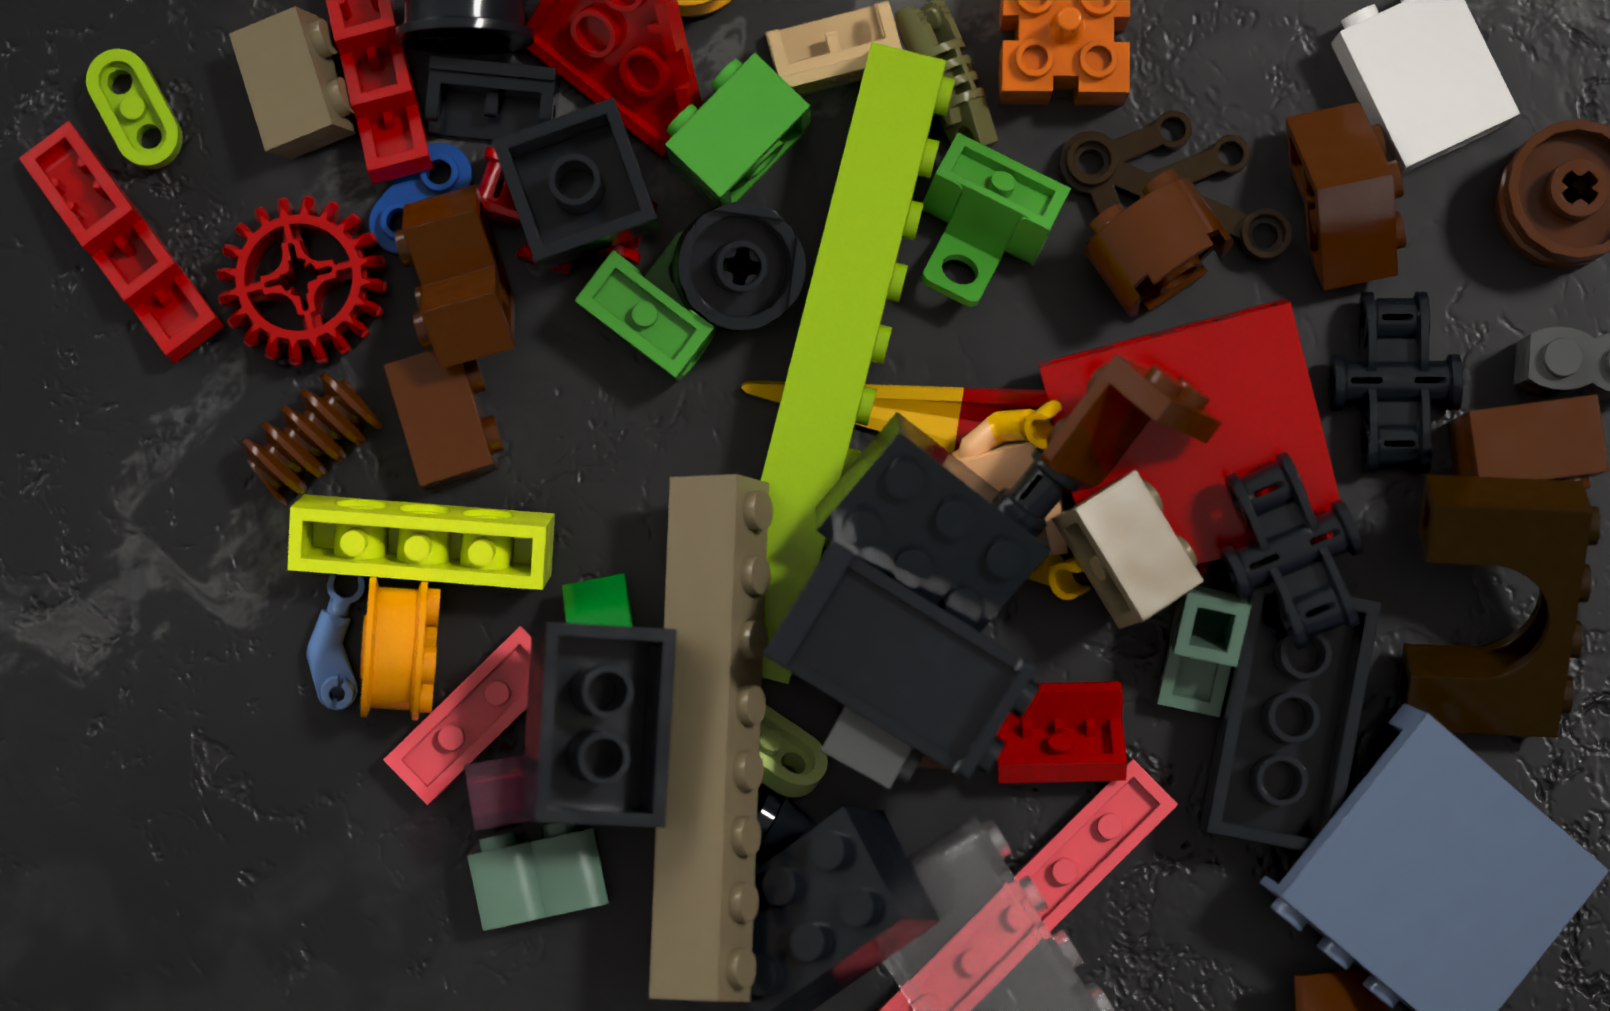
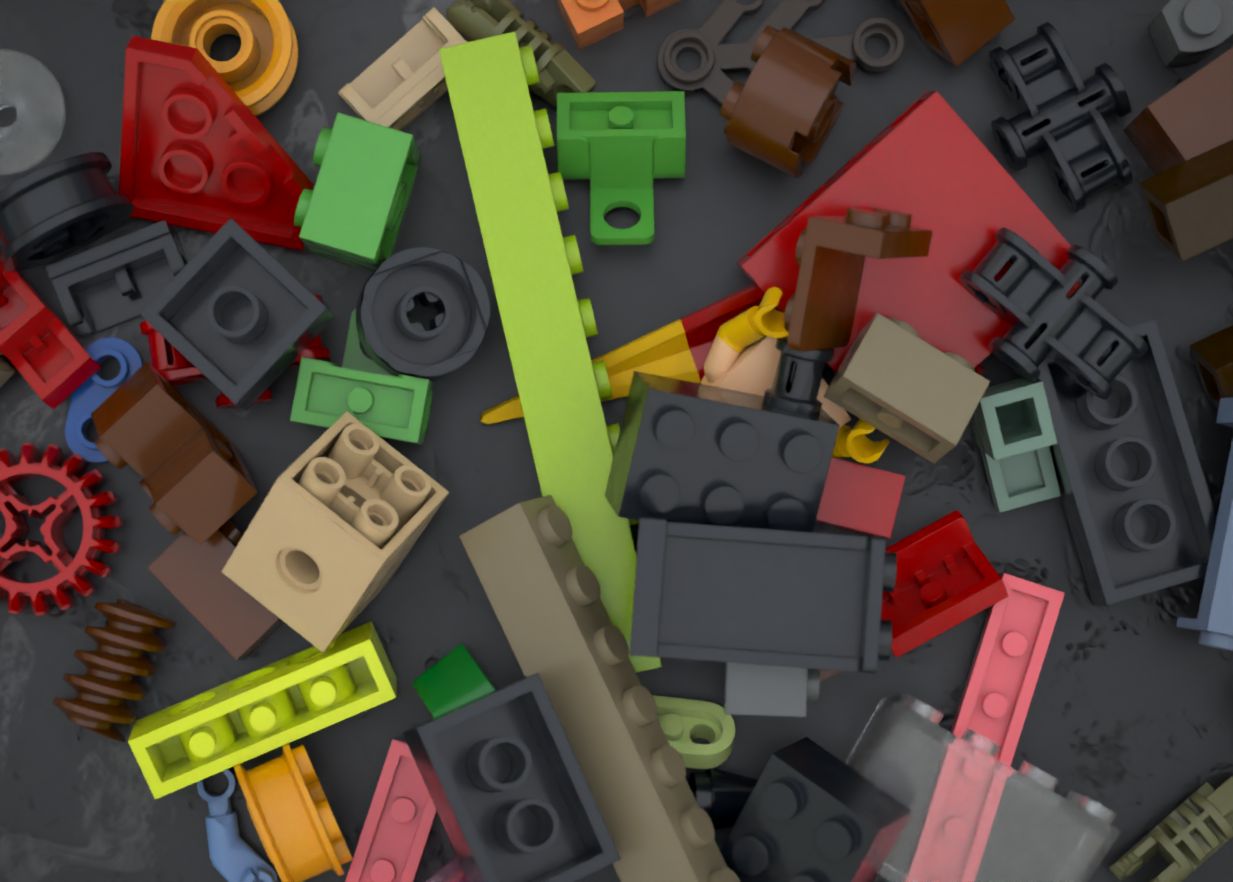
camera: 30 degrees left, 0 degrees up
(563, 417) = (334, 531): none -> tan brick
(1038, 626) = (860, 499): none -> red brick

